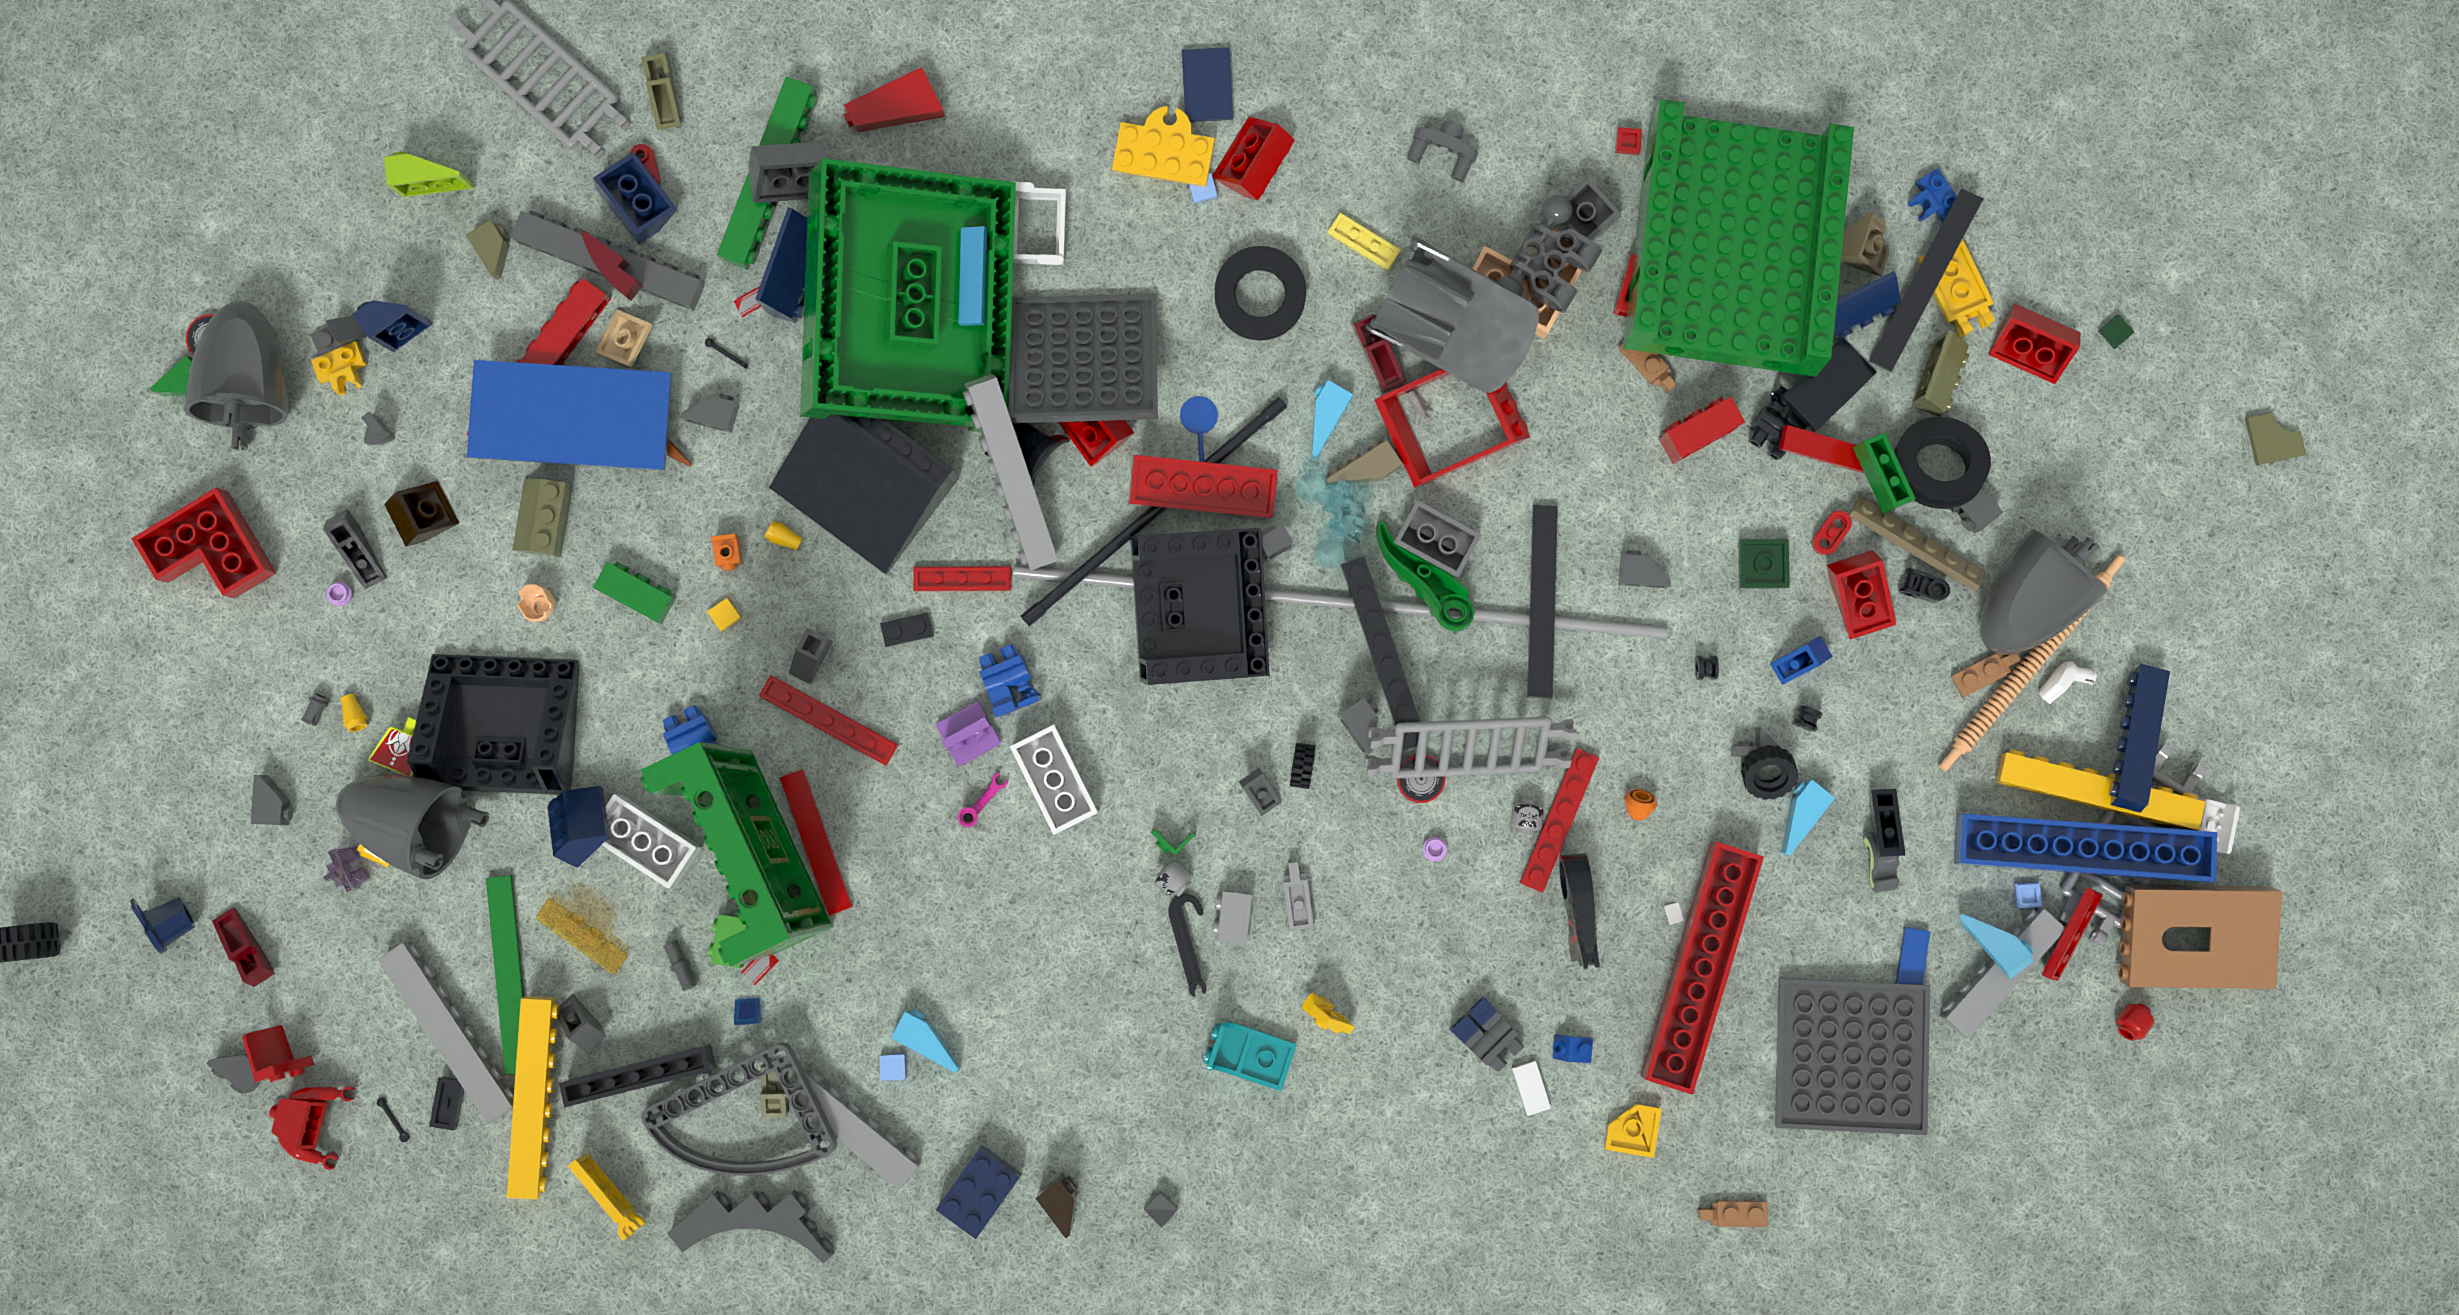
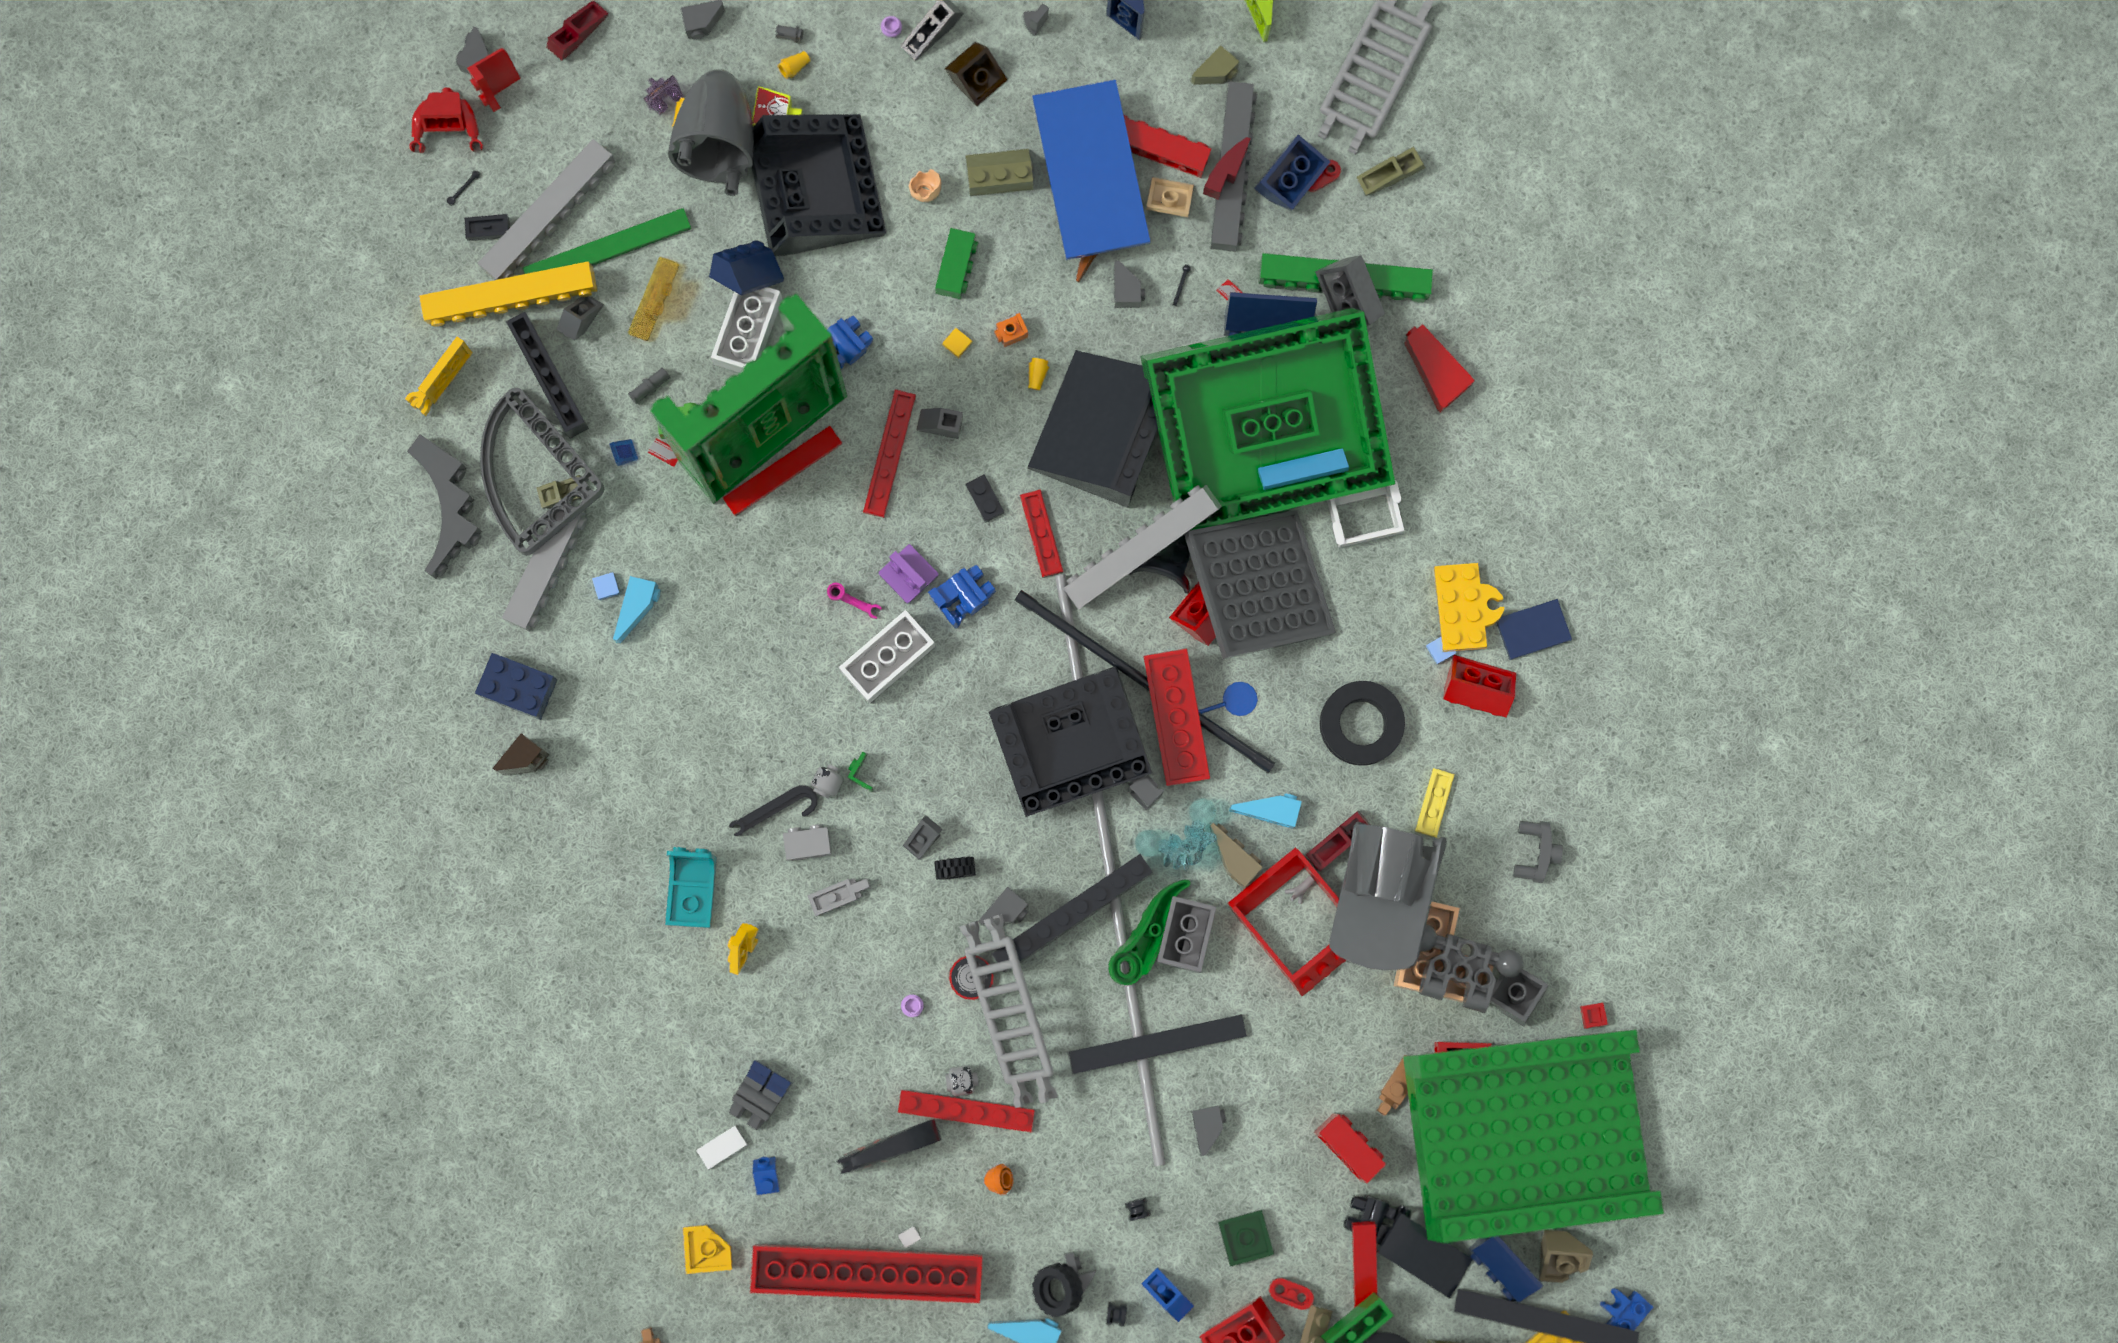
camera: 70 degrees right, 5 degrees down
(1161, 1208) = (538, 847): dark grey slope -> none

